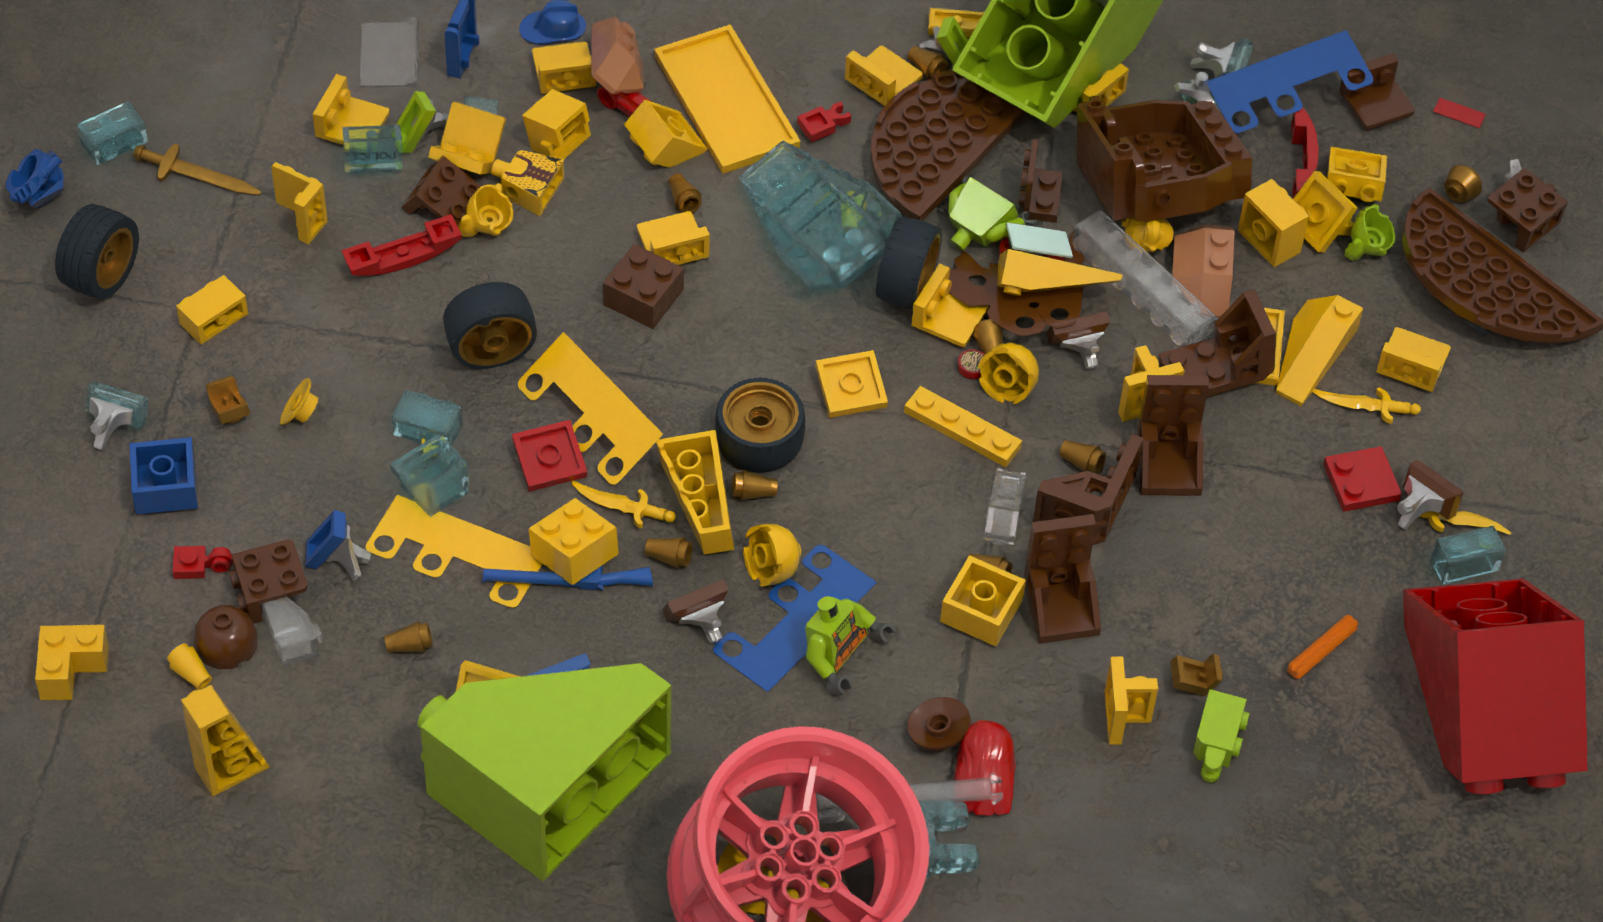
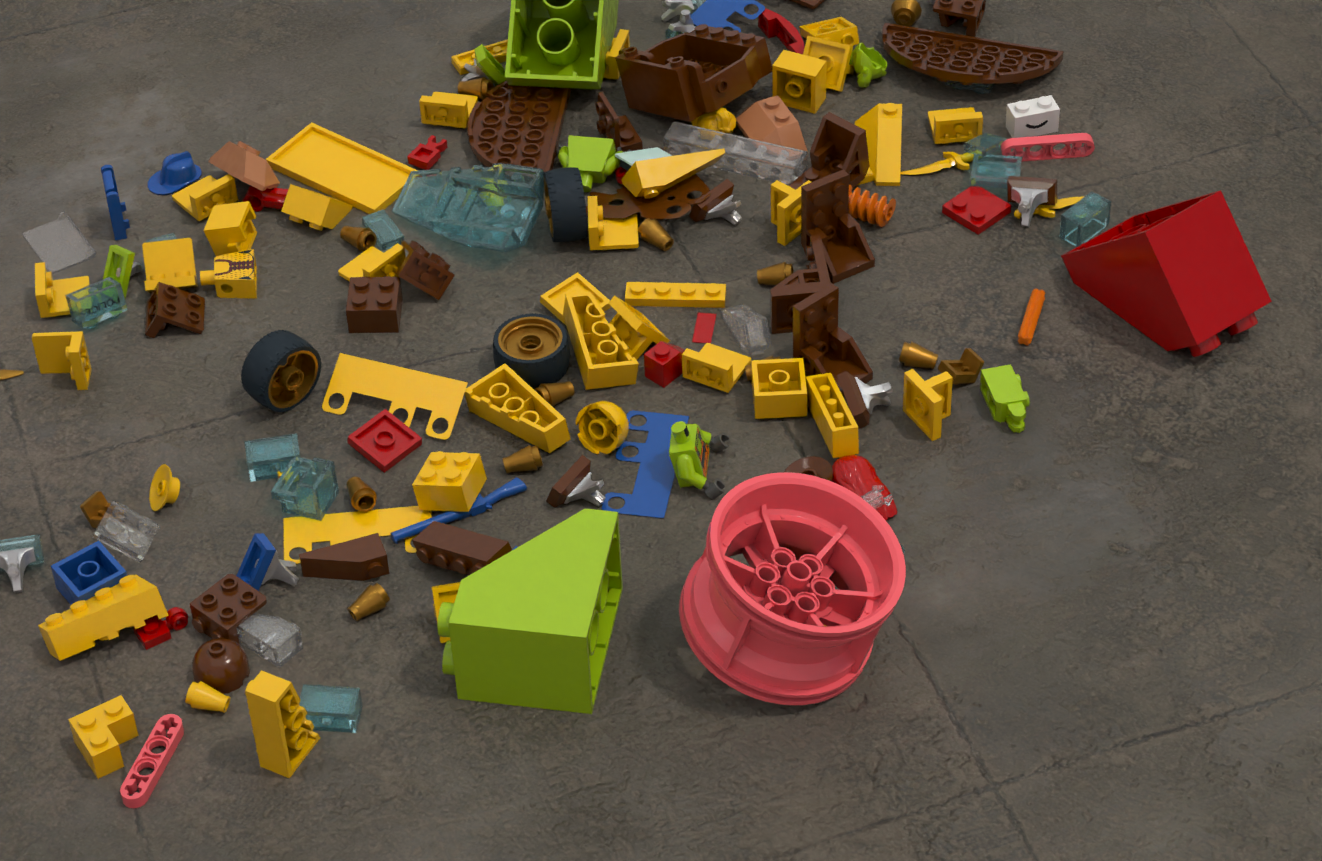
camera: 25 degrees left, 10 degrees down
(102, 712) = (147, 759): none -> coral beam
(146, 524) = (102, 616): none -> yellow wedge
(212, 309) = (44, 459): yellow brick -> none
(230, 437) = (126, 531): none -> clear bracket
(294, 740) = (332, 707): none -> clear light blue brick
(404, 252) = (172, 360): red slope -> none
(425, 581) = (349, 560): none -> reddish brown slope
(483, 509) = (361, 495): none -> pearl gold cone
(485, 206) = (218, 308): yellow hair -> none
(527, 630) = (458, 548): none -> reddish brown brick
(625, 504) = (479, 444): yellow piece -> none
(717, 195) = (384, 228): none -> clear light blue tile
(718, 269) = (425, 270): none -> reddish brown bracket
(828, 459) = (598, 350): none -> yellow wedge
(886, 449) = (634, 328): none -> yellow bracket
(895, 507) = (663, 363): none -> red slope
(940, 537) = (714, 366): none -> yellow bracket
(966, 481) = (704, 328): none -> red sticker
(968, 364) = (652, 254): tile -> none
(1008, 372) = (686, 245): yellow cylinder -> none
(1009, 664) = (832, 415): none -> yellow brick
(1060, 657) = (862, 397): none -> piece
(1161, 634) = (917, 356): none -> pearl gold cone
(1238, 418) = (870, 208): none -> orange piece
(1414, 439) = (994, 170): none -> clear light blue plate
(1426, 402) = (984, 144): none -> clear light blue tile
(1464, 428) = (1048, 143): none -> coral beam
(1505, 393) = (1032, 117): none -> white brick

